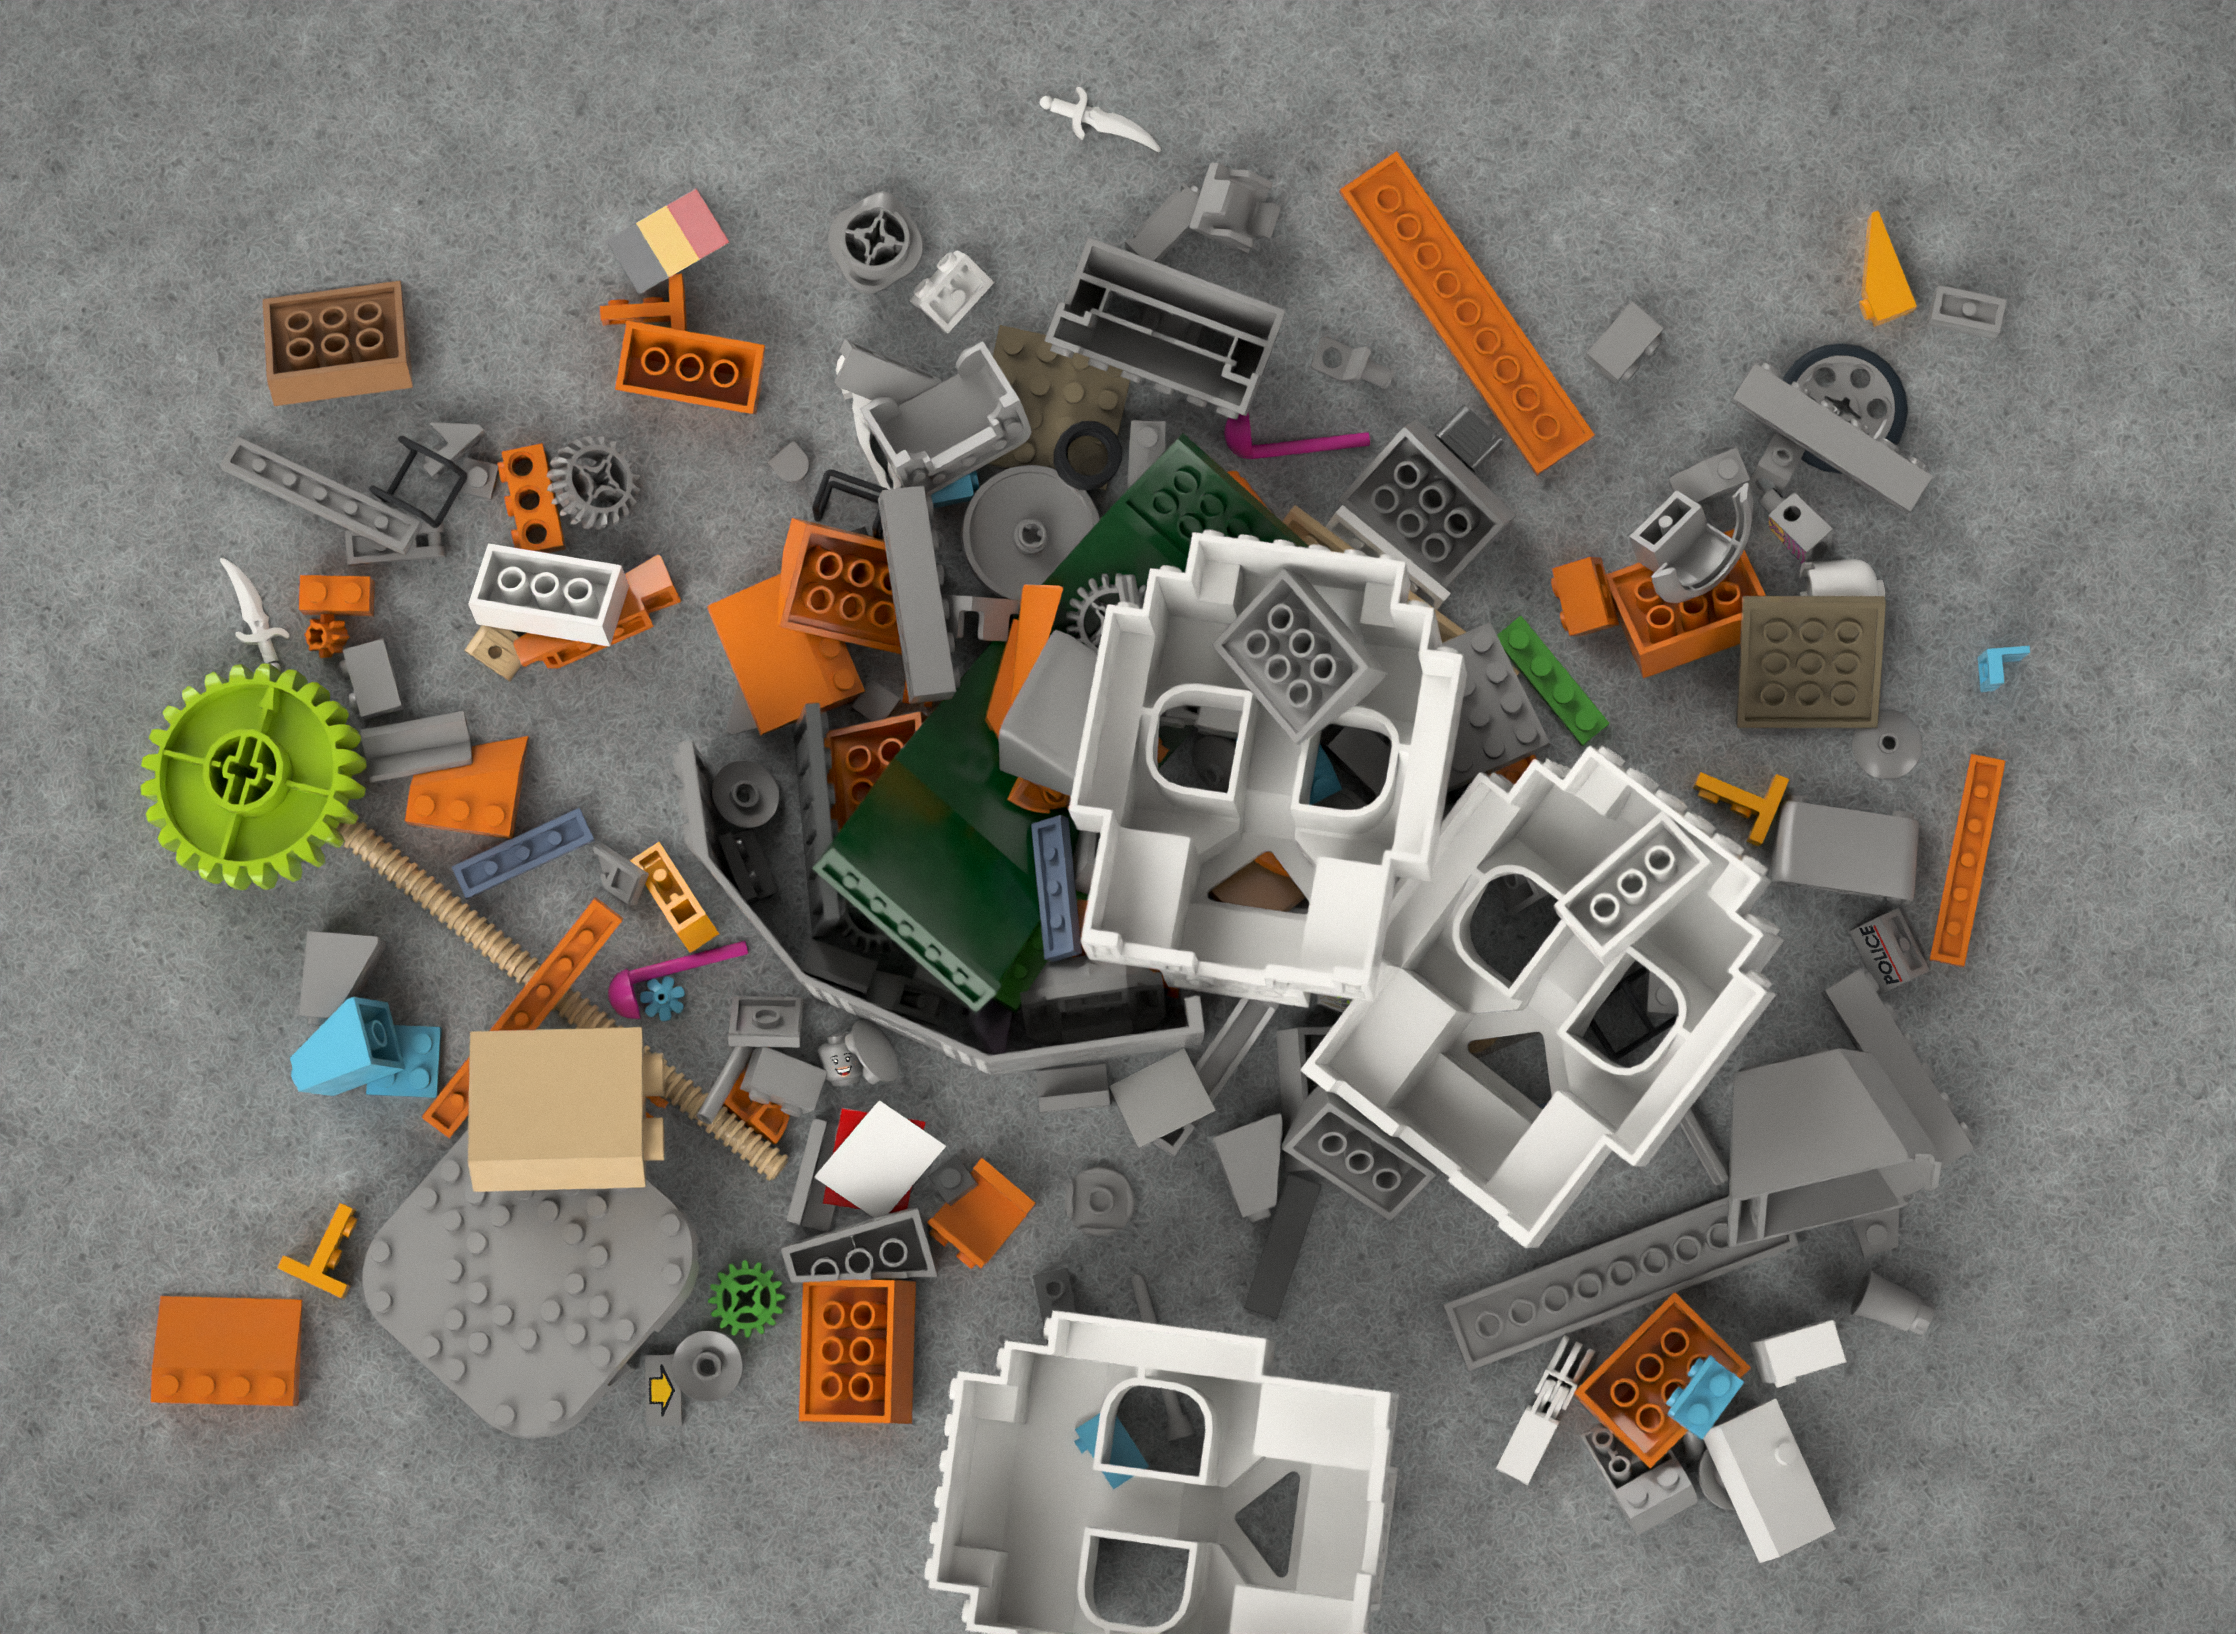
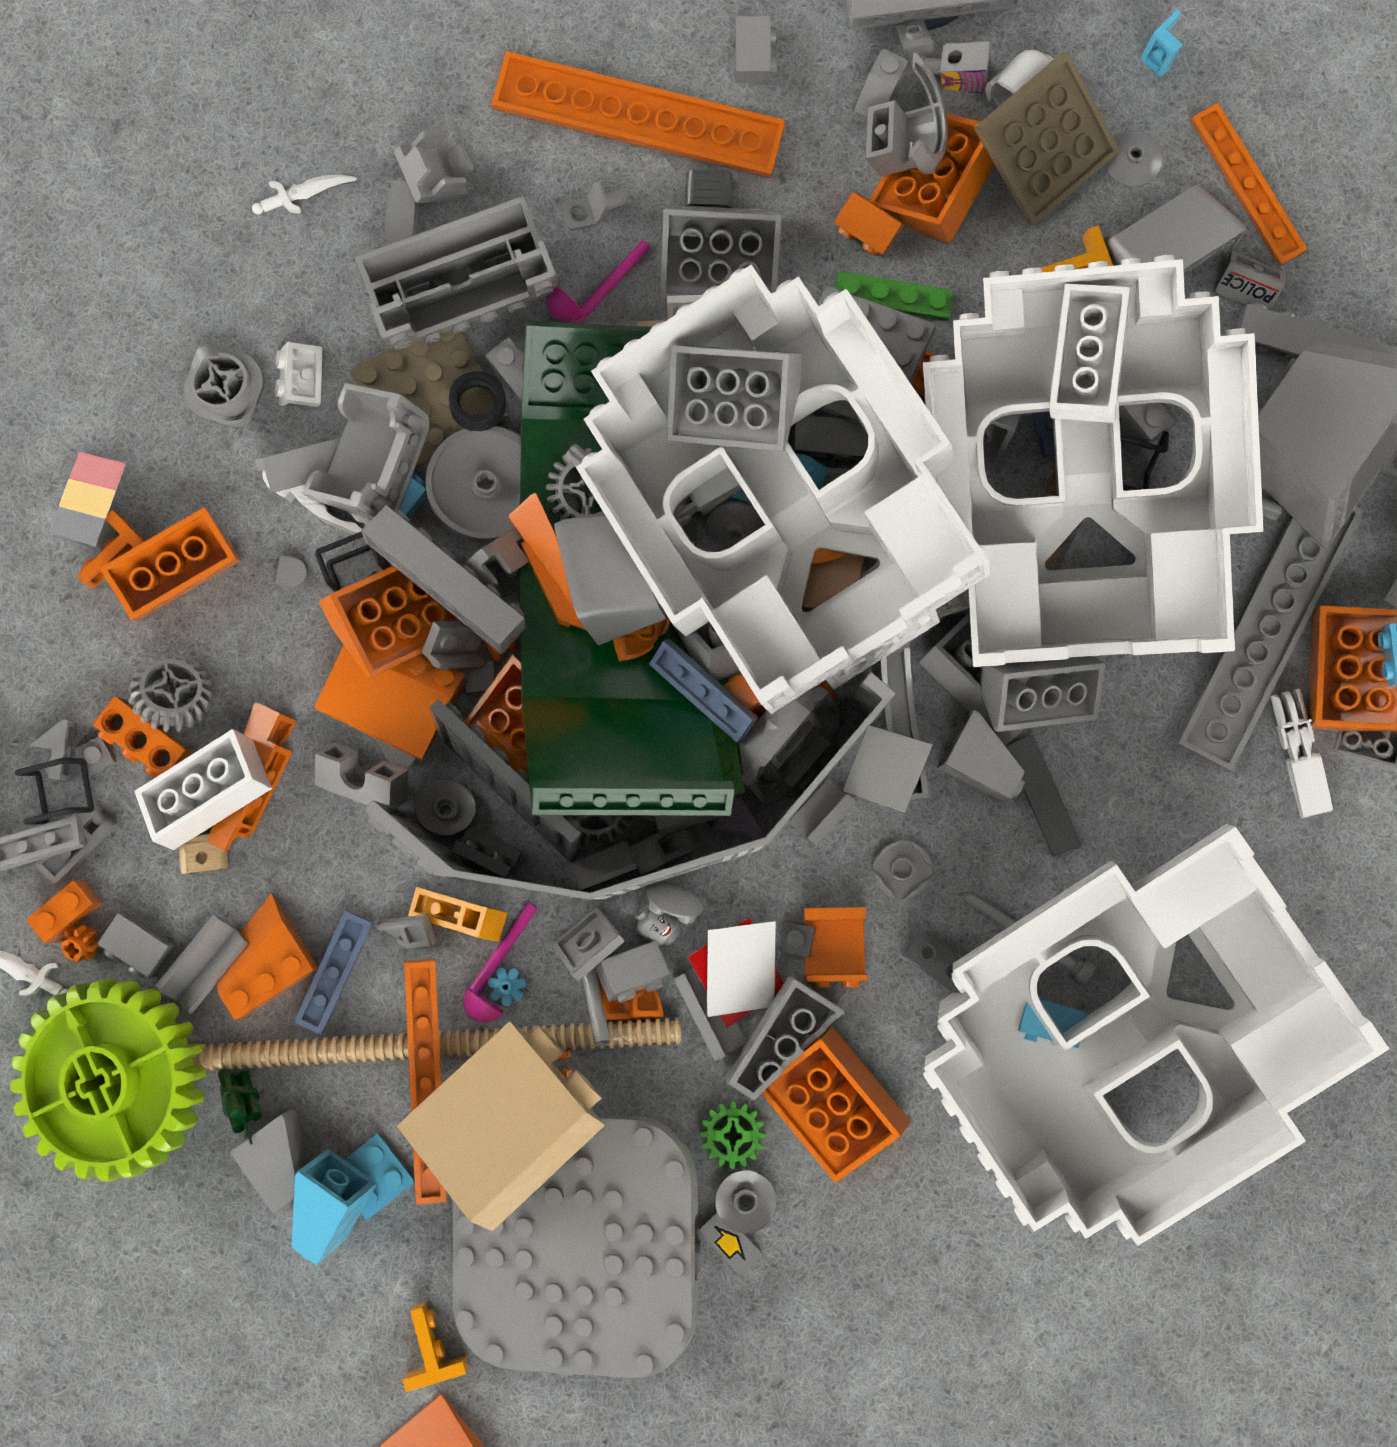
camera: 40 degrees left, 0 degrees up
(348, 893) = (239, 1100): none -> dark green piece
(679, 685) = (340, 774): none -> light grey arch
(874, 658) = (452, 646): none -> light grey bracket

